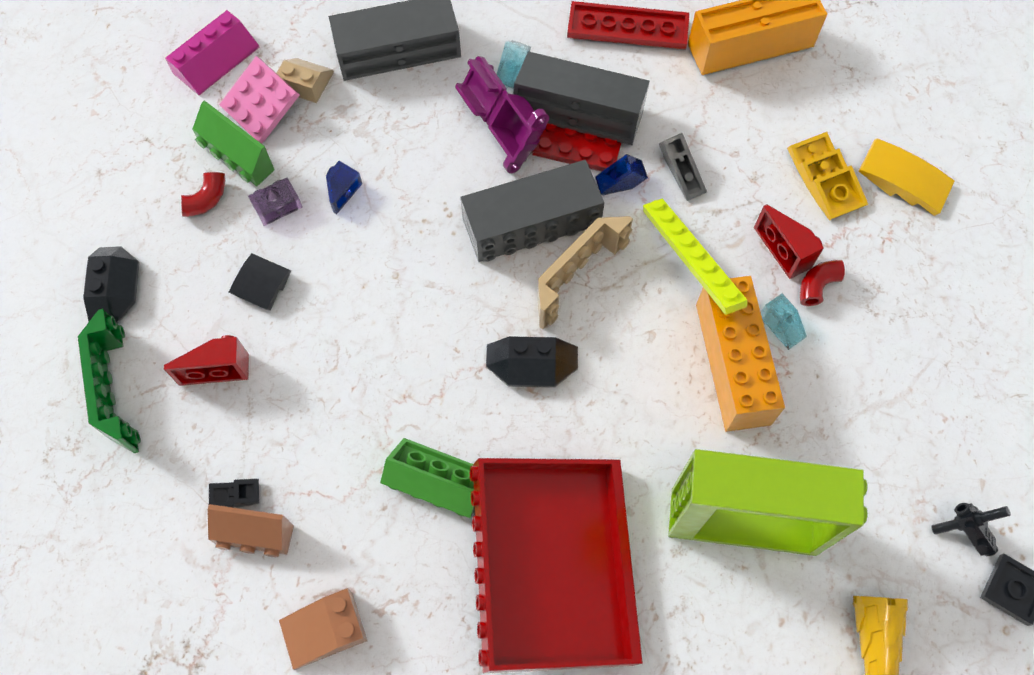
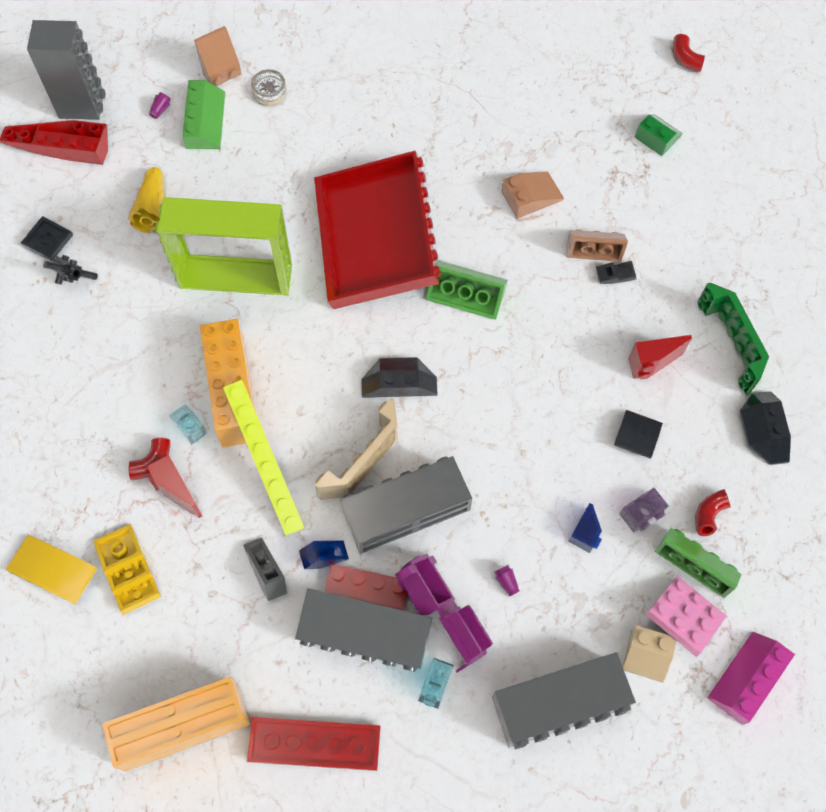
camera: 175 degrees right, 0 degrees up
(433, 146) = (506, 578): none -> magenta cone

